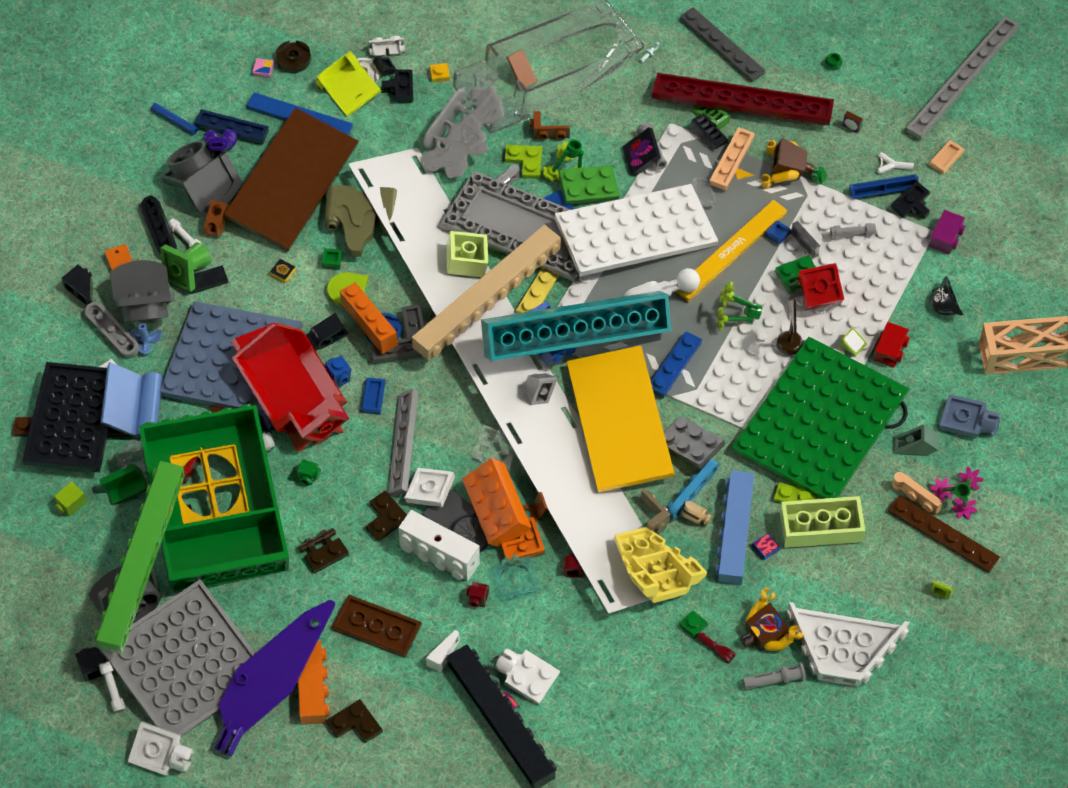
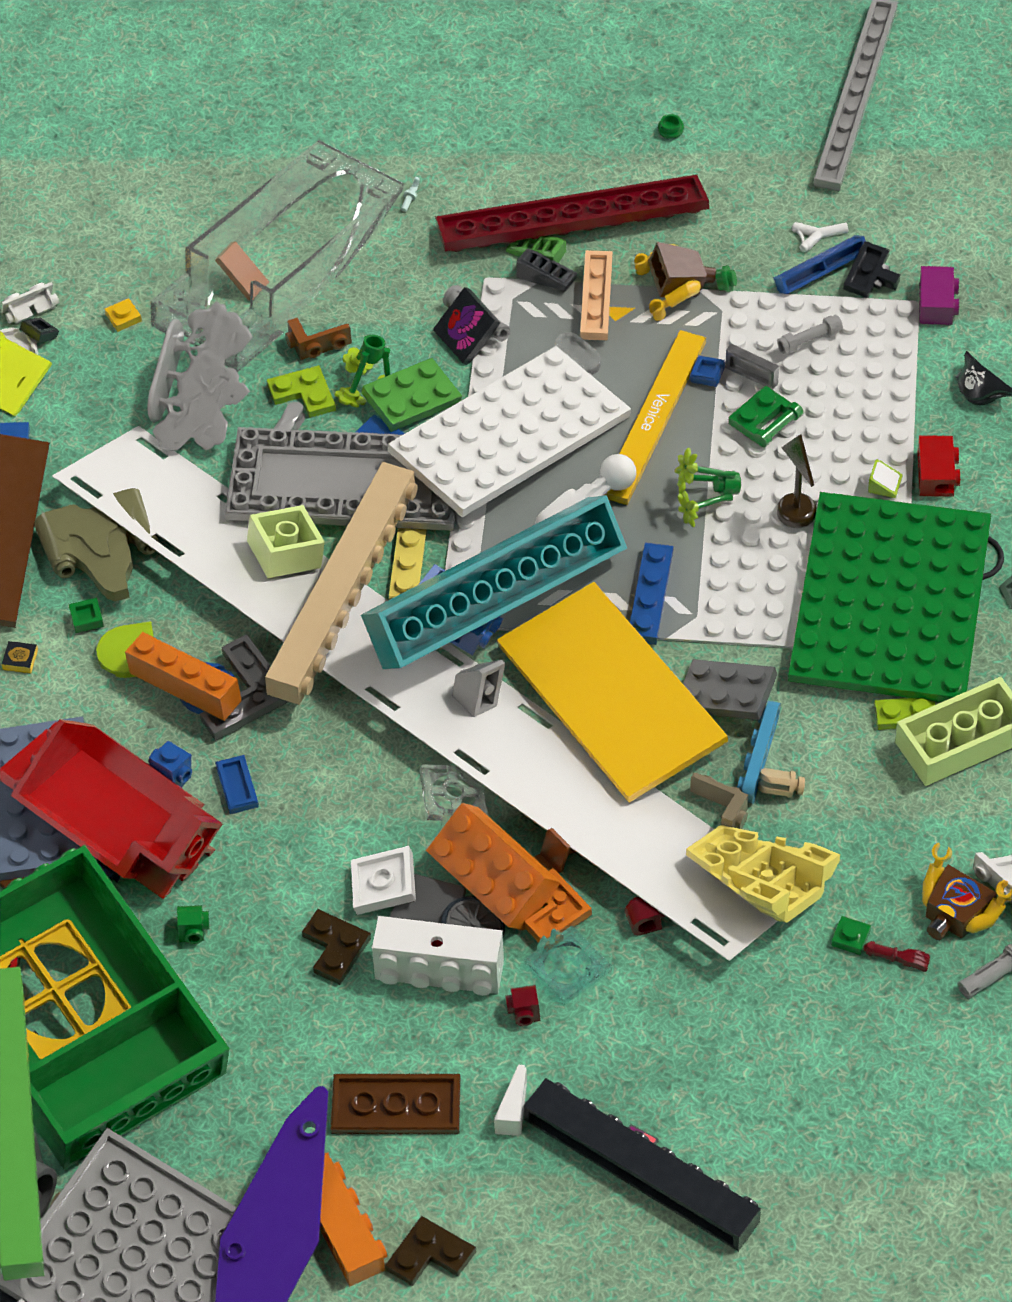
camera: 20 degrees left, 5 degrees down
(326, 555) = (274, 1029): dark brown plate -> none
(327, 332) = (129, 716): black piece -> none
(400, 86) = (75, 349): black hinge -> none
(403, 443) = (313, 833): light grey plate -> none
(526, 674) = (649, 1091): white plate -> none
(722, 44) = (506, 153): dark grey plate -> none
(735, 528) = (846, 782): medium blue brick -> none
(766, 546) = (899, 793): tile -> none
(820, 286) = (808, 413): red piece -> none
(852, 121) = (737, 195): tile -> none
(946, 157) = (885, 201): light nougat tile -> none

